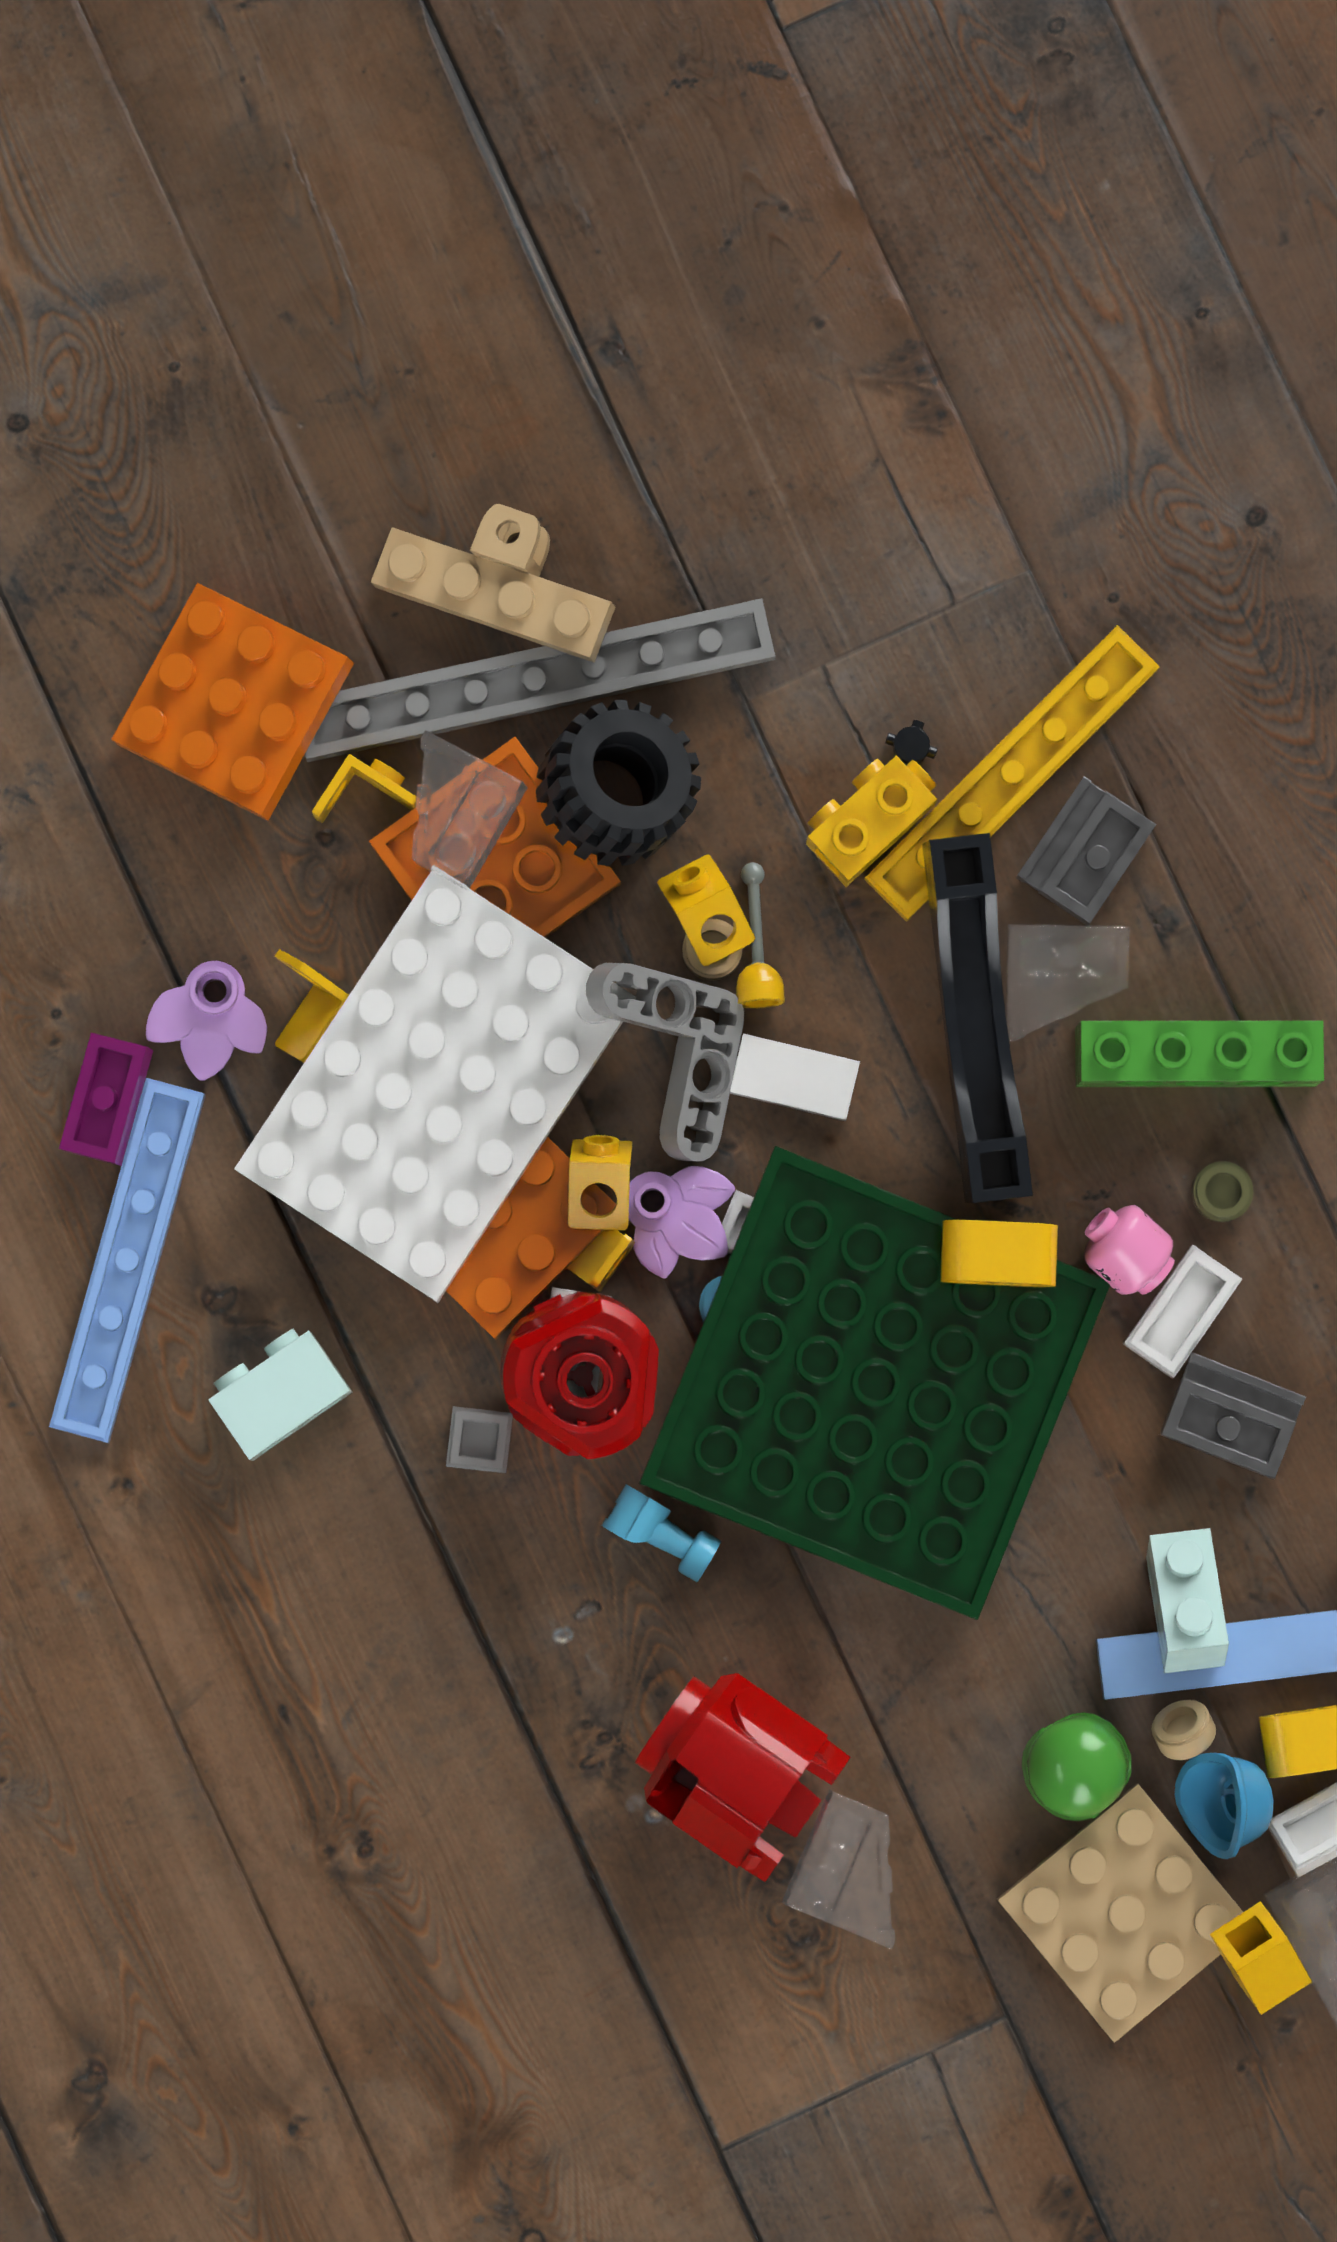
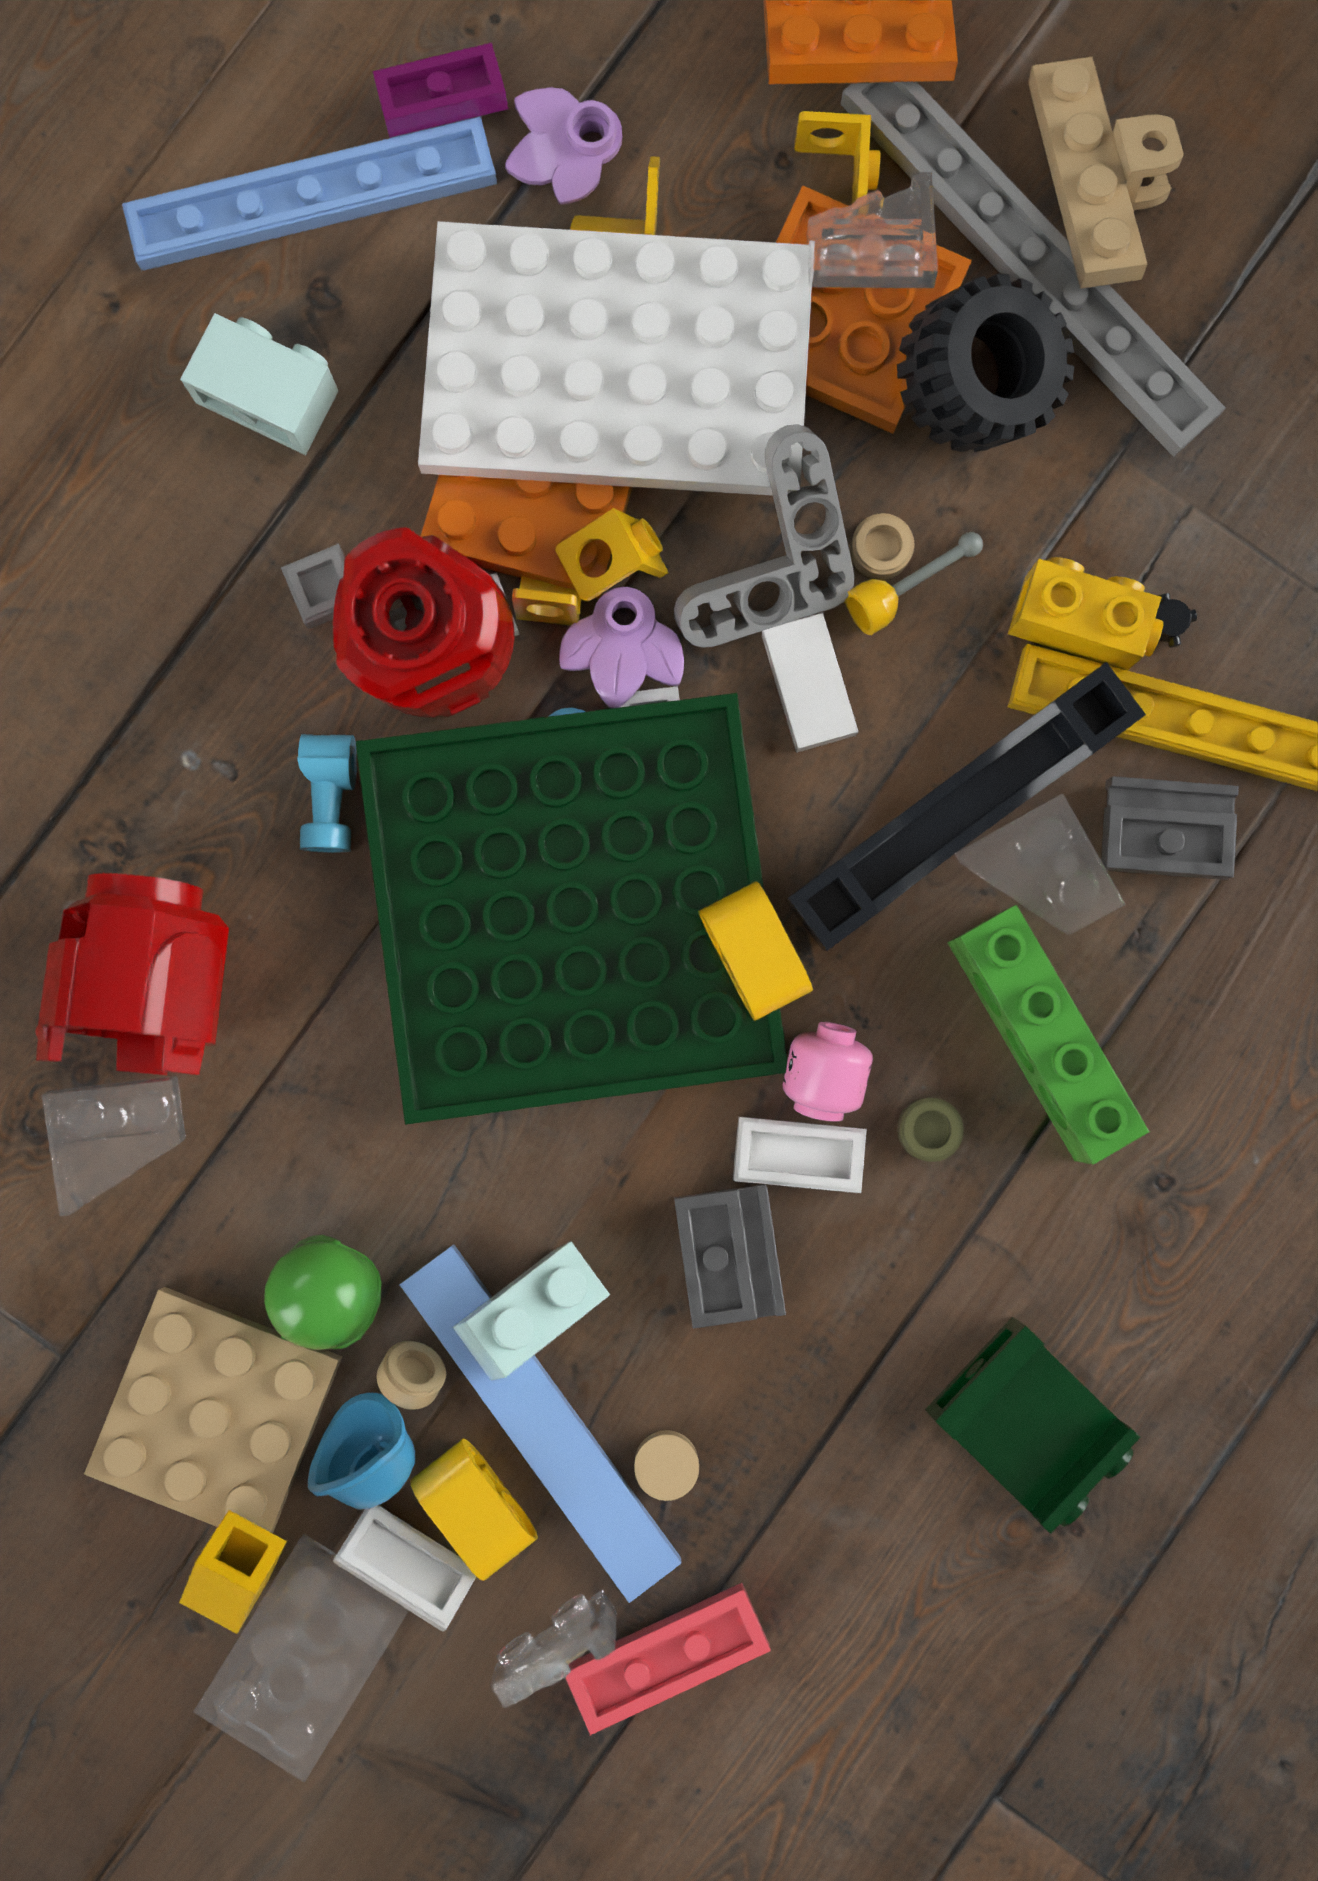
camera: 60 degrees right, 0 degrees up
(695, 896) = (928, 499): yellow bracket -> none

